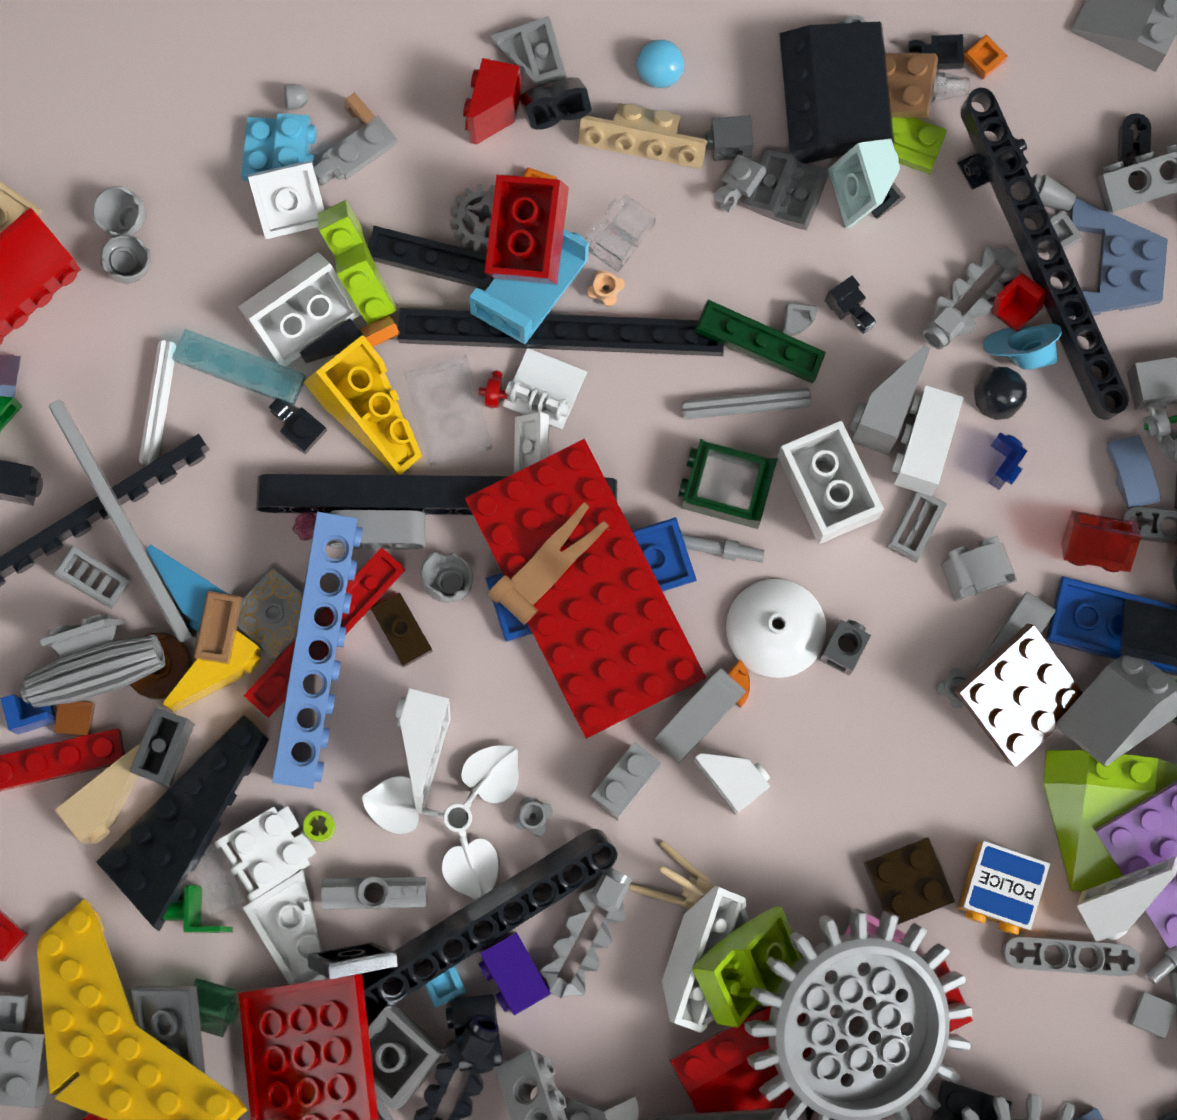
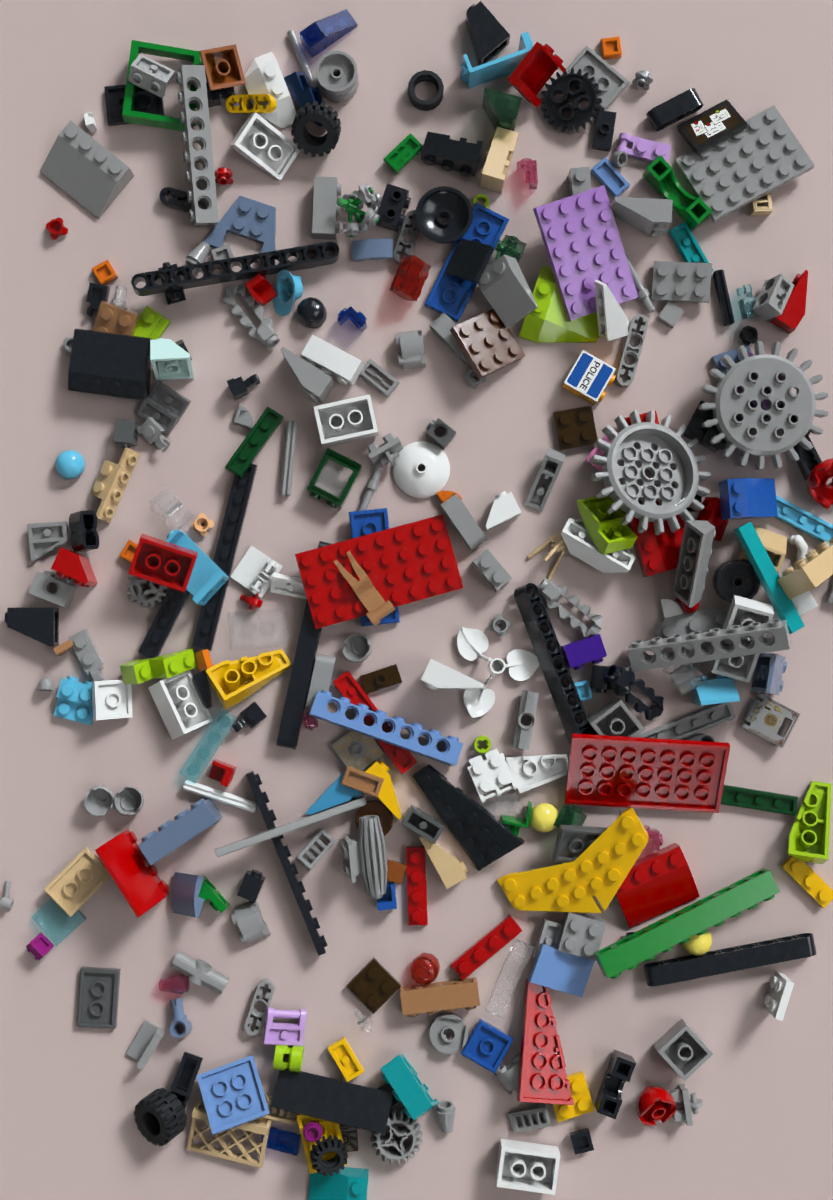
camera: 75 degrees left, 10 degrees up
(89, 345) = (176, 833): none -> sand blue brick
(198, 400) = (222, 772): none -> red panel
(207, 958) = (543, 817): none -> light yellow hair
(351, 960) = (562, 738): black tile -> none
(390, 61) = (35, 623): none -> black slope
(449, 59) = (42, 584): none -> light grey brick
(792, 561) = (385, 453): none -> light grey hips
(806, 844) = (545, 479): none -> light grey slope

